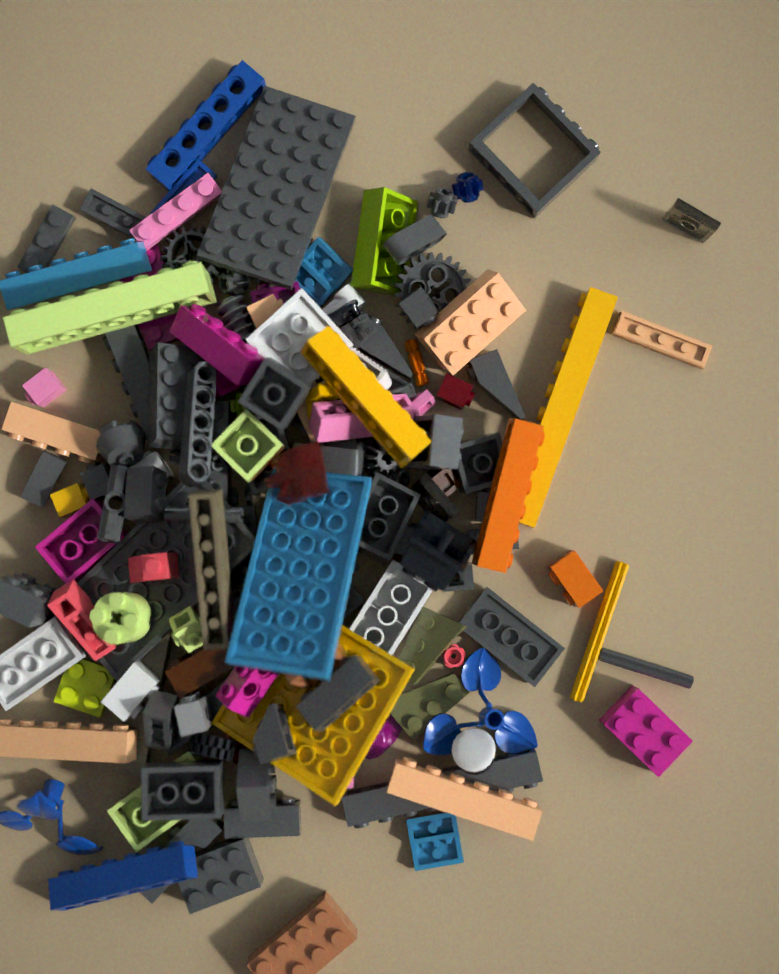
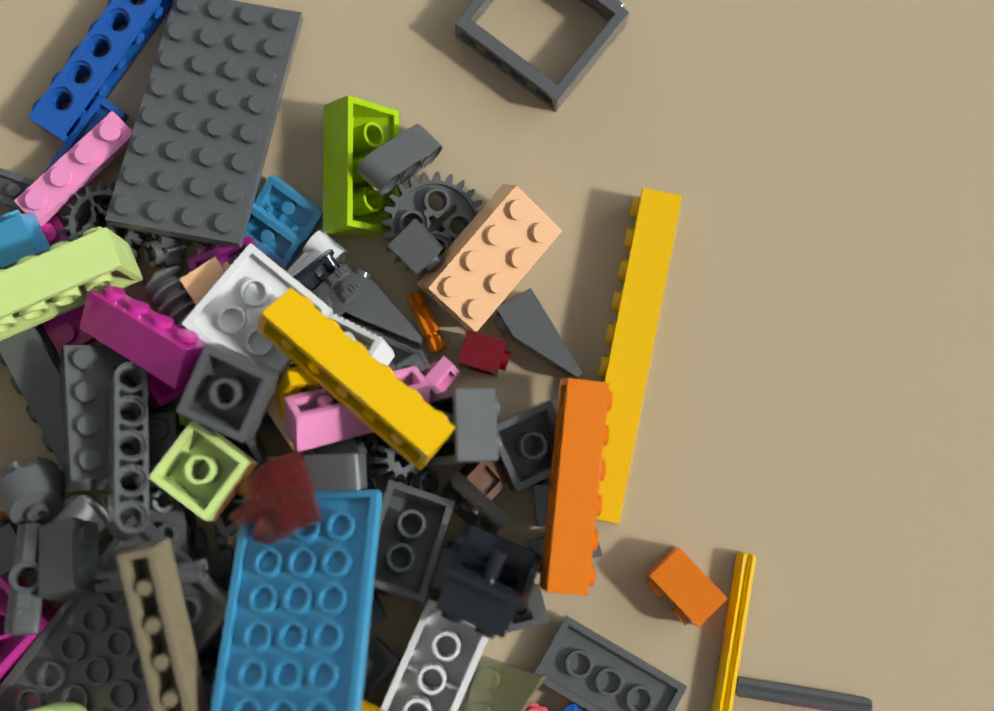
camera: 10 degrees left, 5 degrees down
(153, 567) = (92, 662): coral slope -> none
(442, 202) = (430, 107): dark grey gear -> none
(467, 187) = (461, 82): clear blue gear -> none
(661, 340) = (749, 245): light nougat tile -> none
(691, 220) = (762, 83): clear smoke tile -> none

